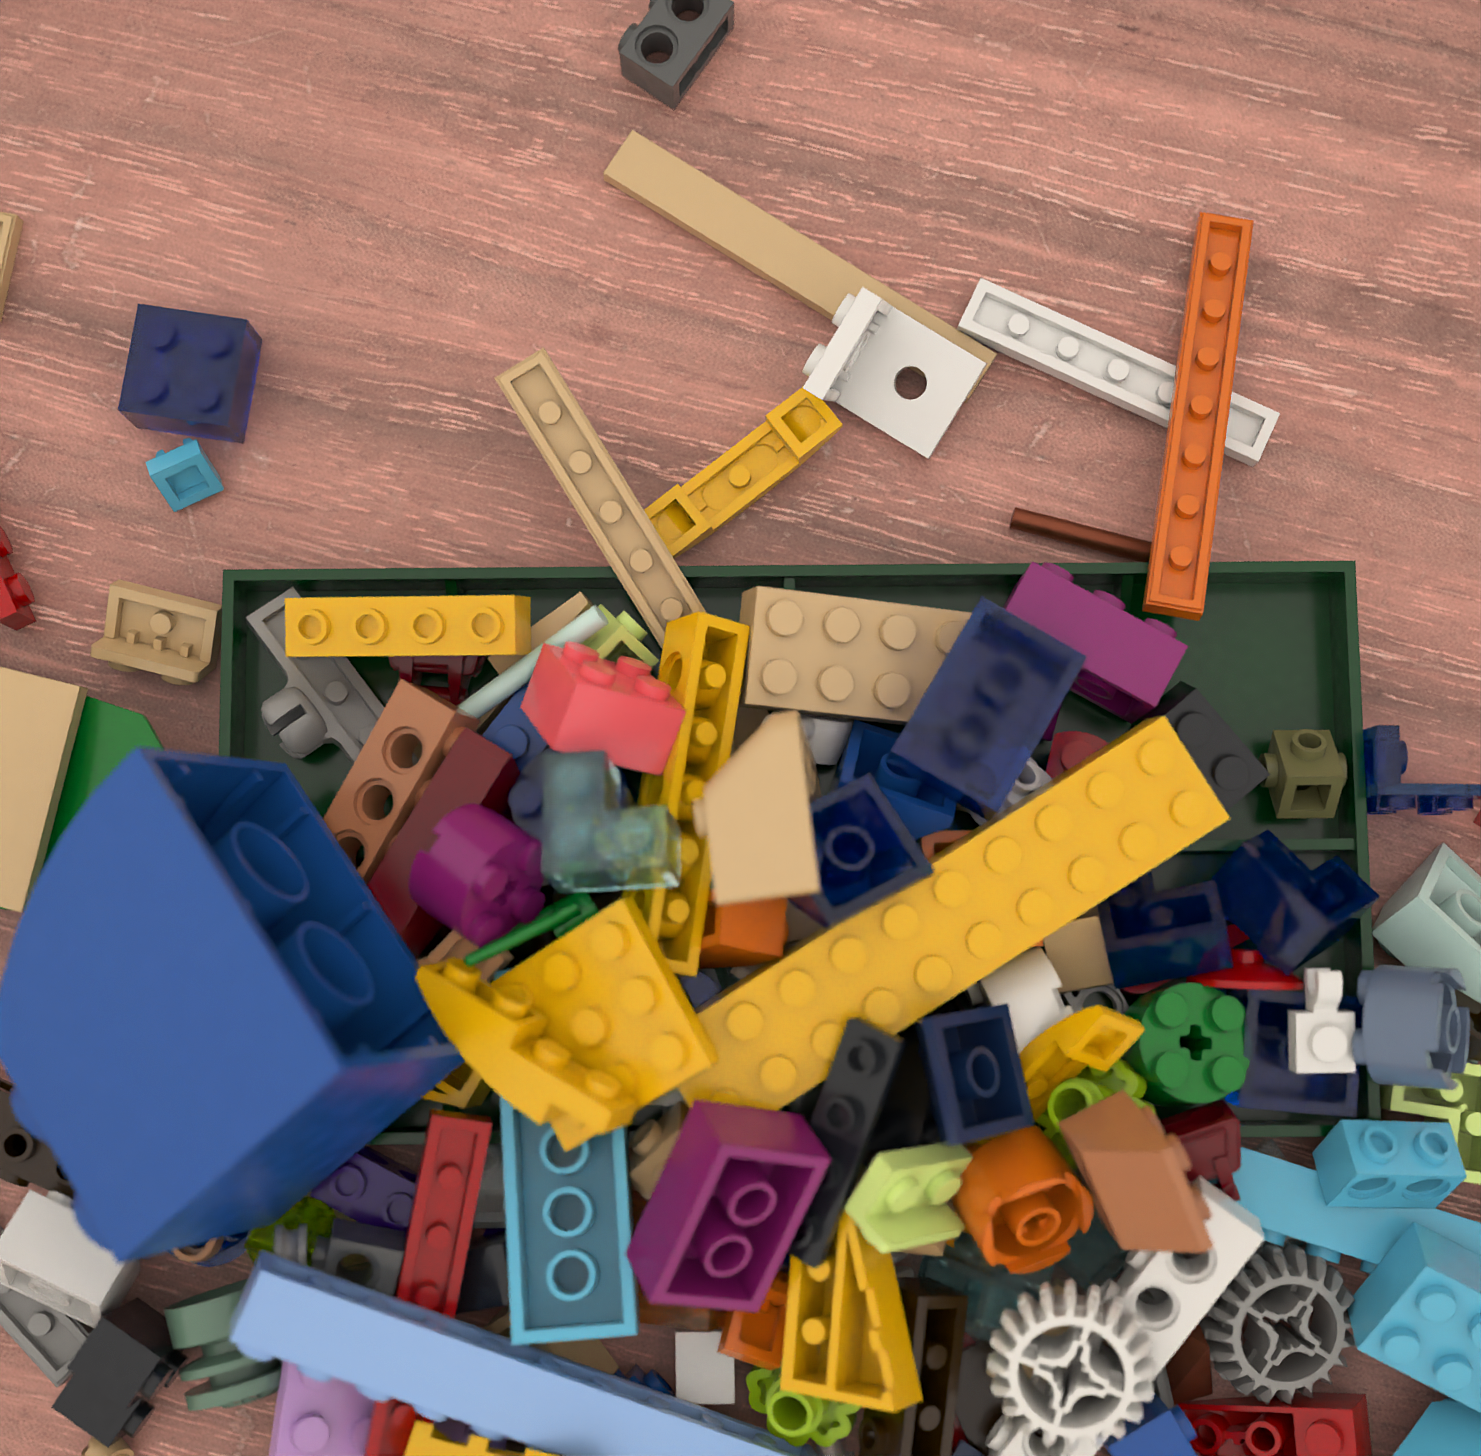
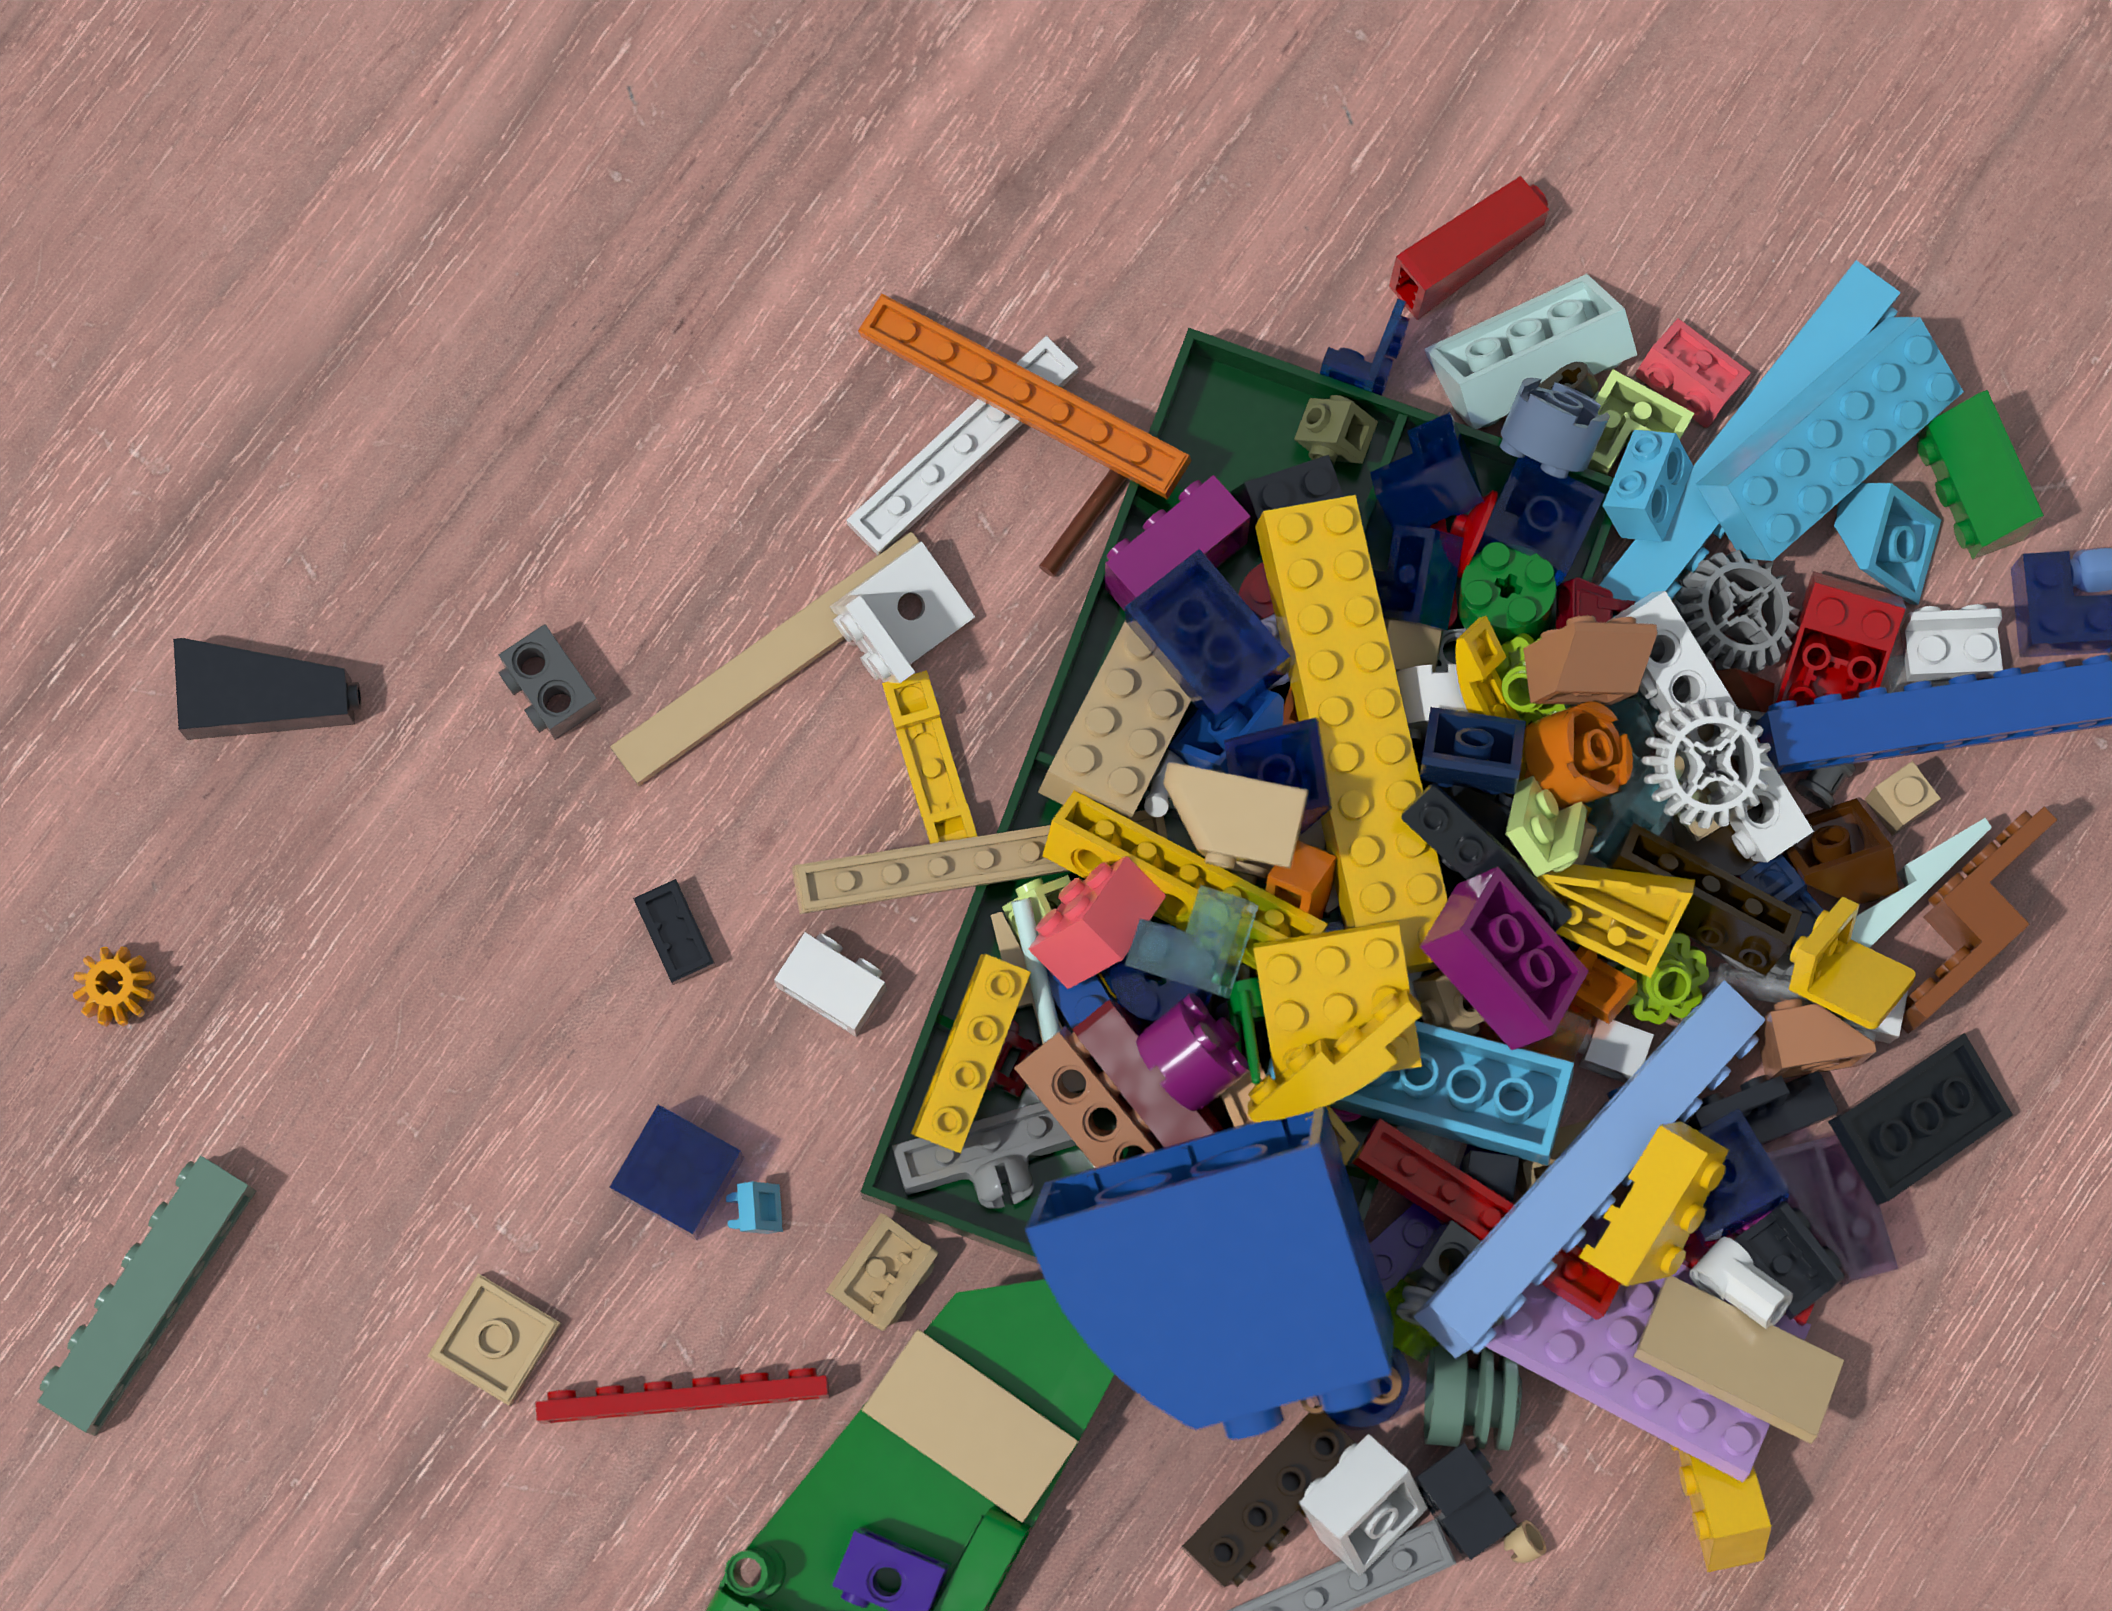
camera: 70 degrees left, 5 degrees down
(455, 273) = (674, 932): none -> black plate
(458, 457) = (831, 983): none -> white brick
(1321, 1033) = (1533, 493): white plate -> none

